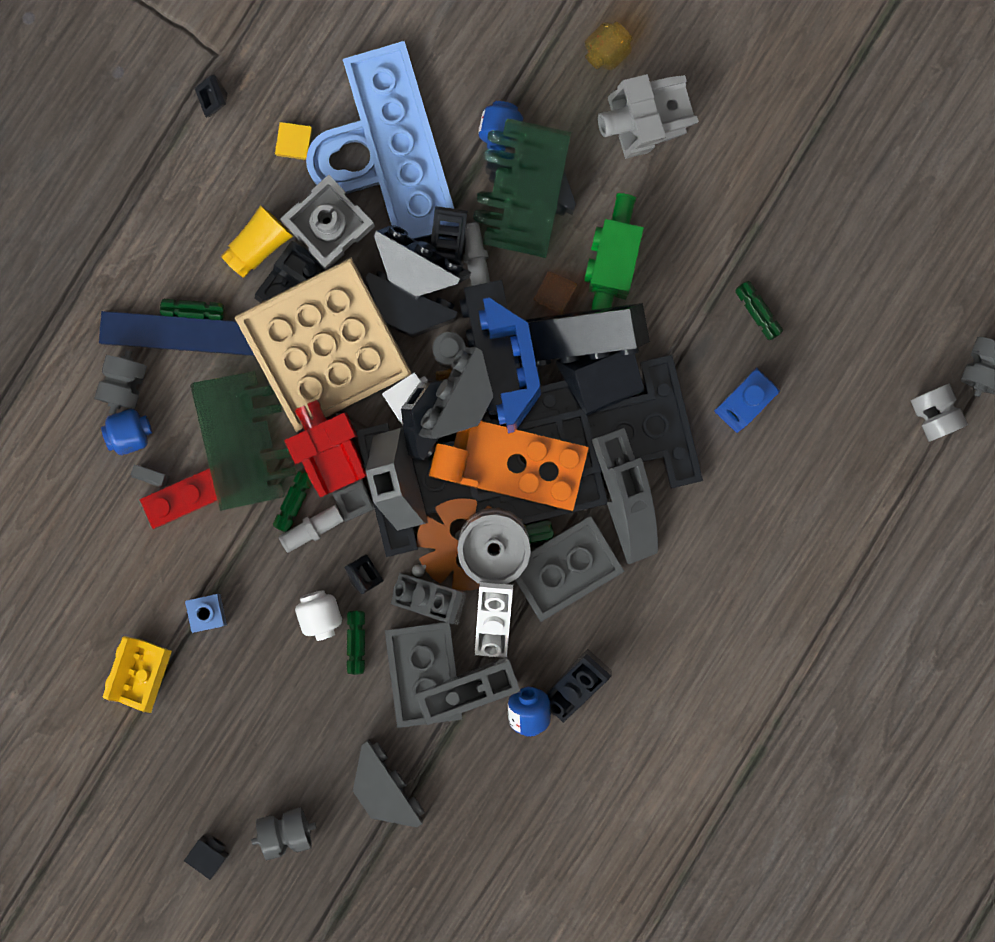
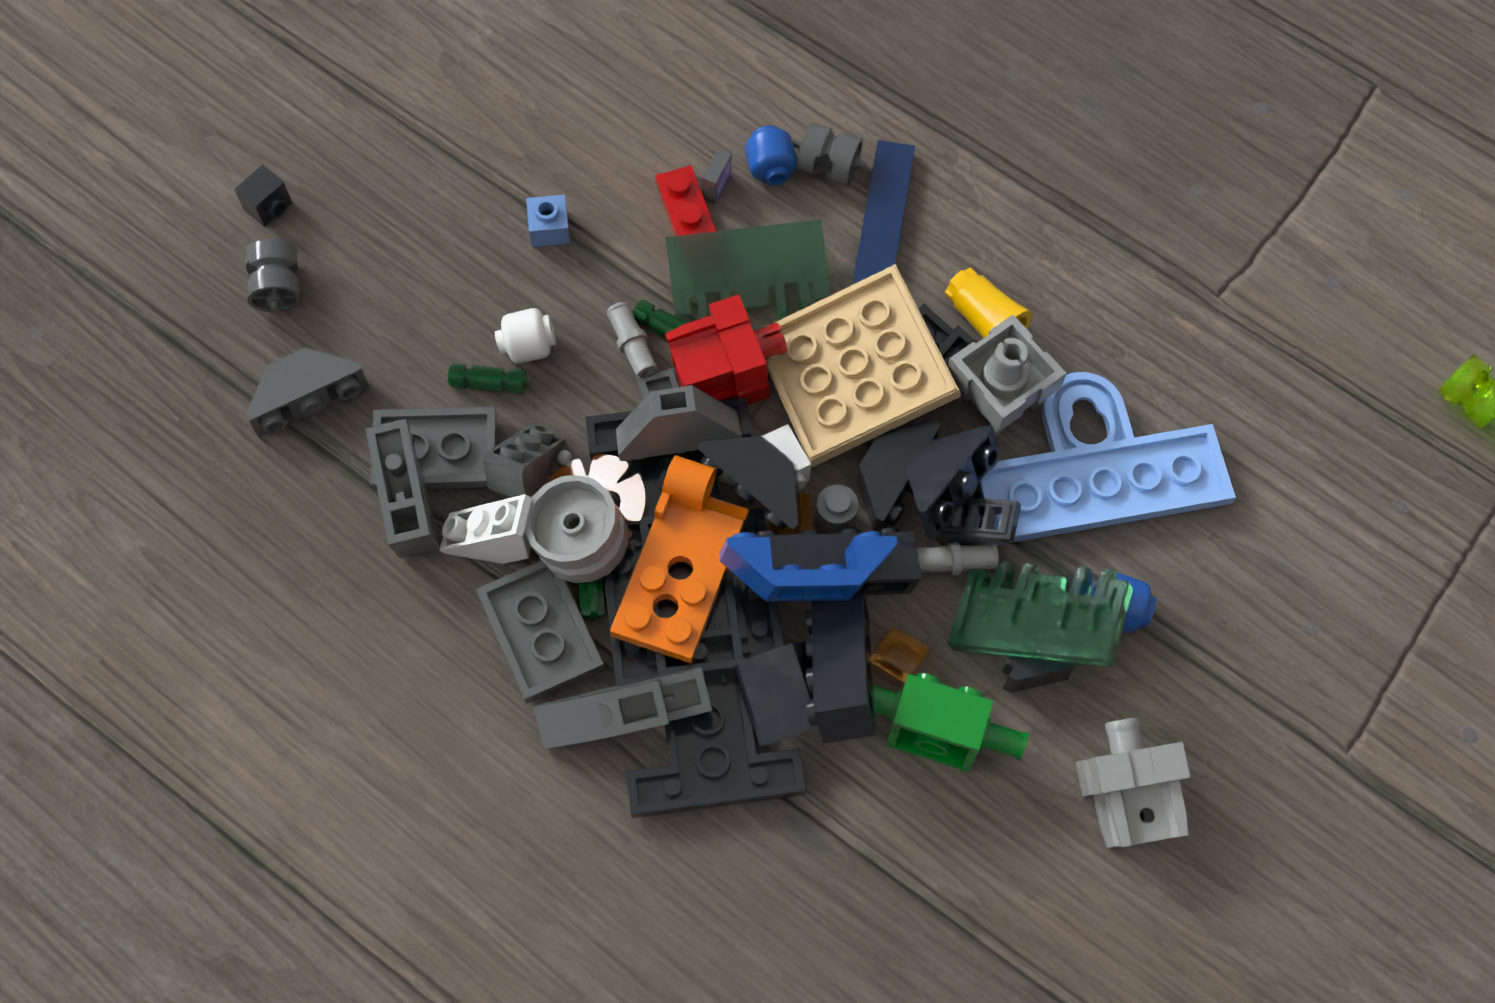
camera: 90 degrees right, 20 degrees down
(136, 673) = (490, 142): yellow bracket -> none
(192, 309) = (910, 239): dark green axle -> none
(211, 95) = (1168, 282): black slope -> none
(293, 140) = (1111, 363): yellow tile -> none
(363, 574) = (568, 392): black slope -> none
(460, 398) = (767, 494): dark grey slope -> none
(529, 711) = (364, 562): blue head -> none
(577, 685) = (388, 625): black slope -> none
(608, 46) = (1228, 749): clear yellow head -> none
(747, 400) = (738, 889): blue torso -> none
(758, 310) = (856, 919): dark green axle -> none

